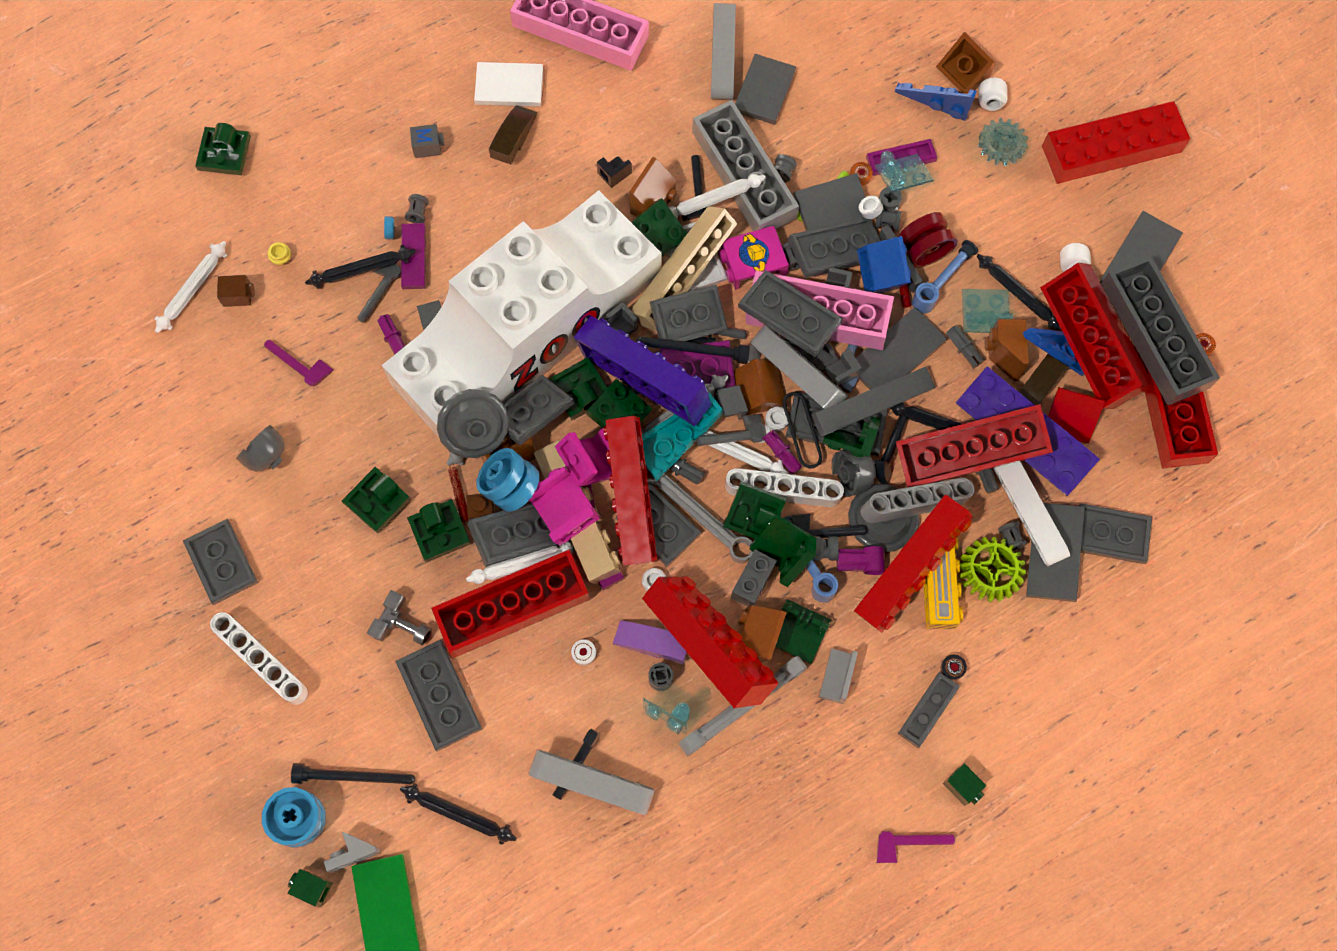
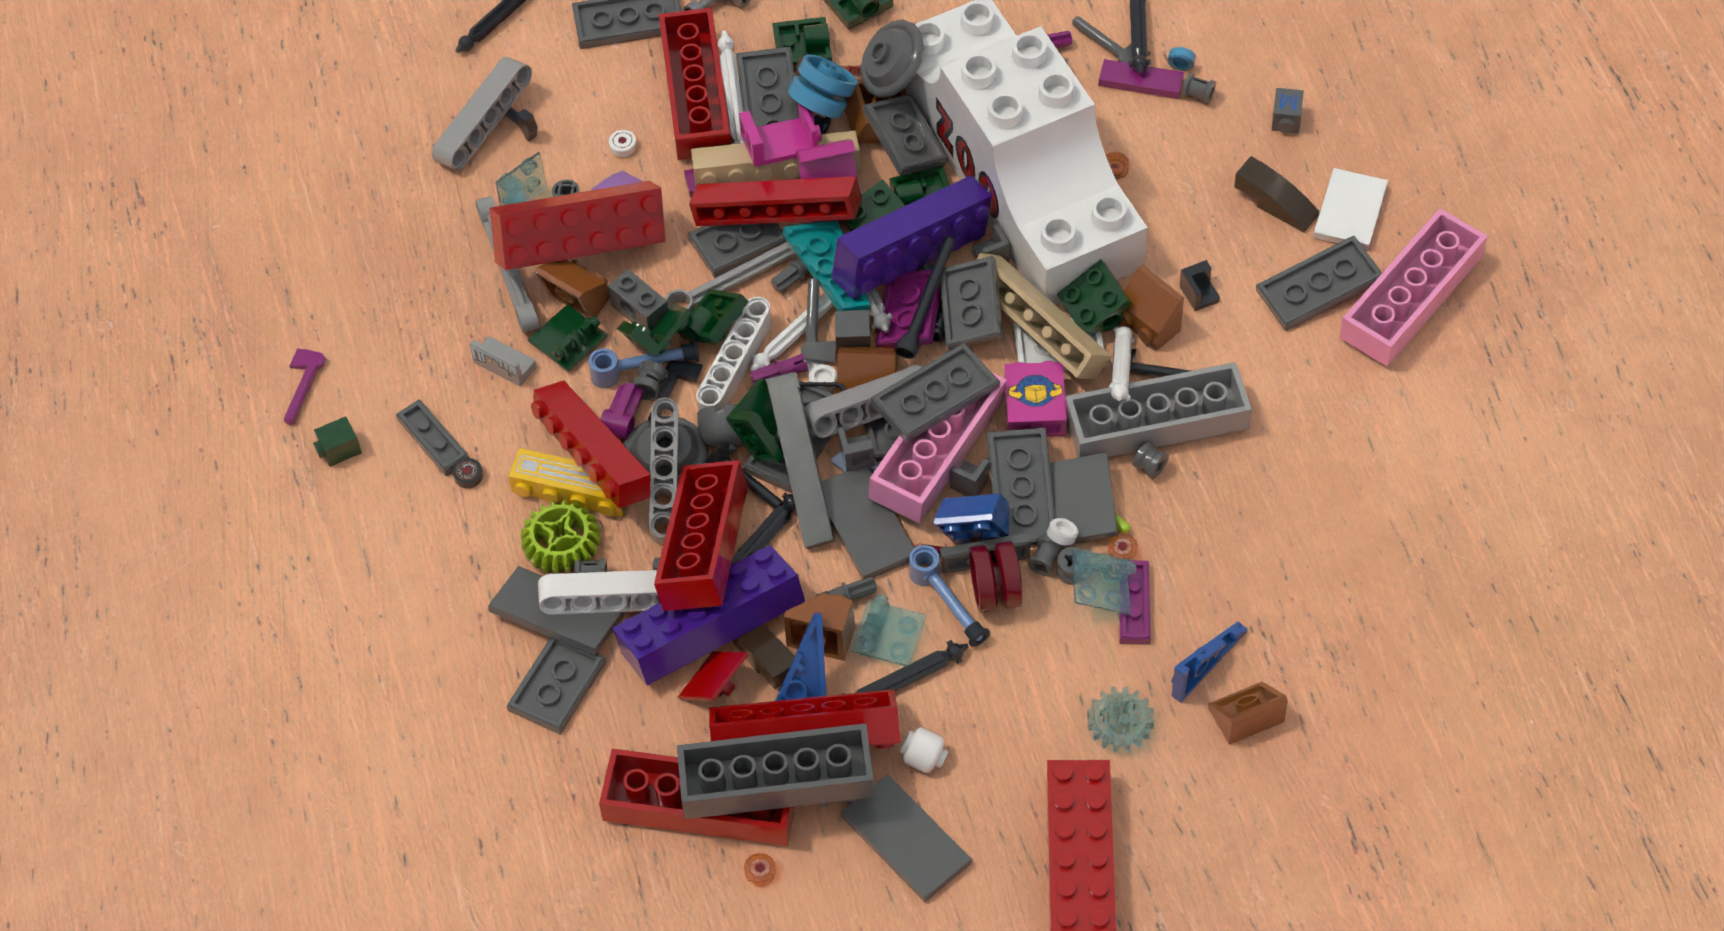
camera: 110 degrees right, 15 degrees down
(587, 90) = (1319, 283): none -> dark grey tile
(650, 577) = (676, 221): white tile -> none
(723, 51) = (1341, 437): light grey beam -> none
(765, 88) = (1276, 474): dark grey tile -> none
(992, 94) = (1196, 728): white head -> none

